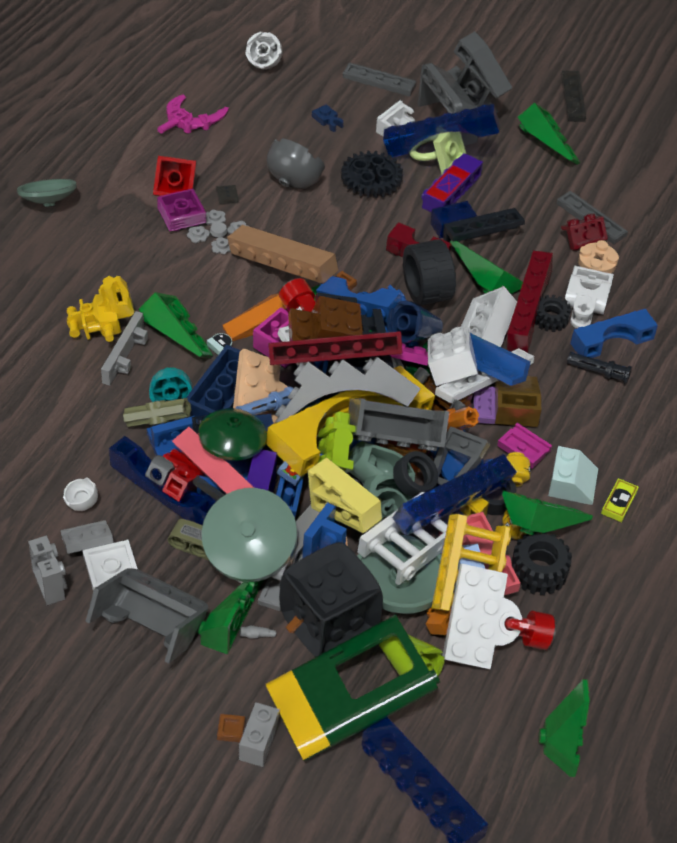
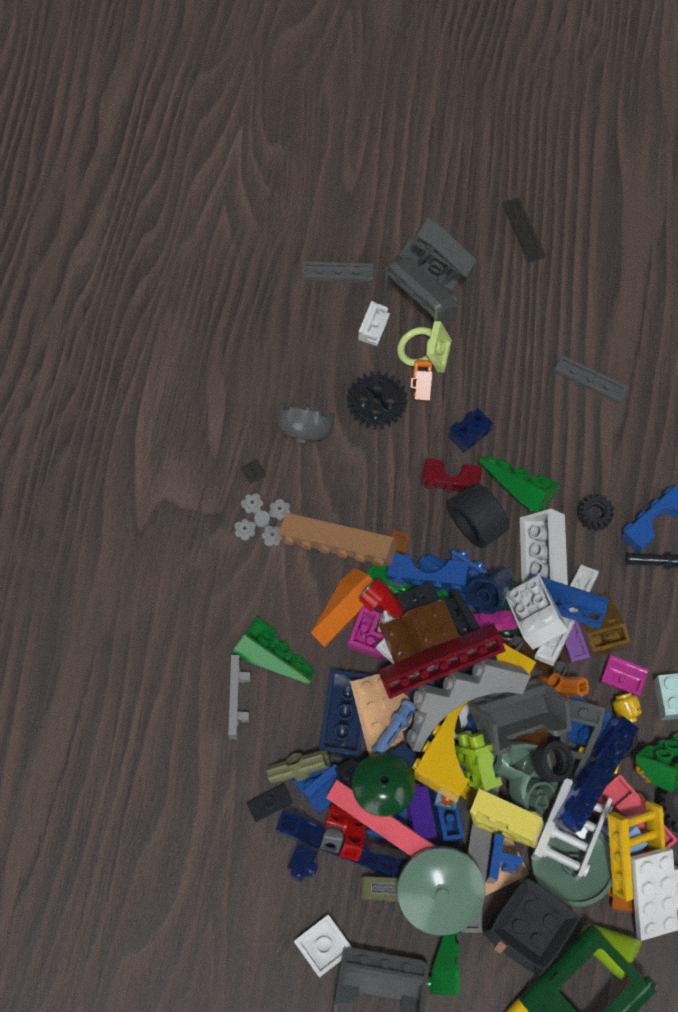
camera: 15 degrees left, 20 degrees up
(47, 190) = (87, 532): sand green dish -> none
(47, 569) = (275, 979): light grey piece -> none
(80, 494) = (266, 880): white hair -> none
(86, 536) = (290, 923): light grey plate -> none
(105, 310) = (200, 667): yellow piece -> none
(105, 439) = (269, 803): none -> black plate
(123, 486) = (303, 864): none -> clear blue brick
(169, 385) = (298, 732): teal cylinder -> none
(173, 175) = (198, 471): red slope -> none
(181, 210) = (220, 498): magenta brick -> none
(183, 119) = (175, 390): dark pink bar -> none
(218, 342) = (317, 656): tile -> none
(255, 632) = (472, 966): light grey piece -> none
(264, 50) = (220, 281): white cylinder -> none
(326, 115) = (306, 337): dark blue plate -> none
(422, 169) = (424, 379): none -> piece
(452, 183) = (454, 387): dark purple brick -> none
(476, 121) = (456, 320): clear blue arch -> none
(482, 225) = (501, 429): black fence -> none
(525, 312) = (574, 508): dark red arch -> none
(544, 127) = (510, 284): green wedge -> none
(585, 231) = (592, 402): dark red bracket -> none
(585, 301) = (620, 488): white piece -> none
(592, 278) = (631, 458): white tile -> none
(598, 250) = (614, 438): light nougat plate -> none

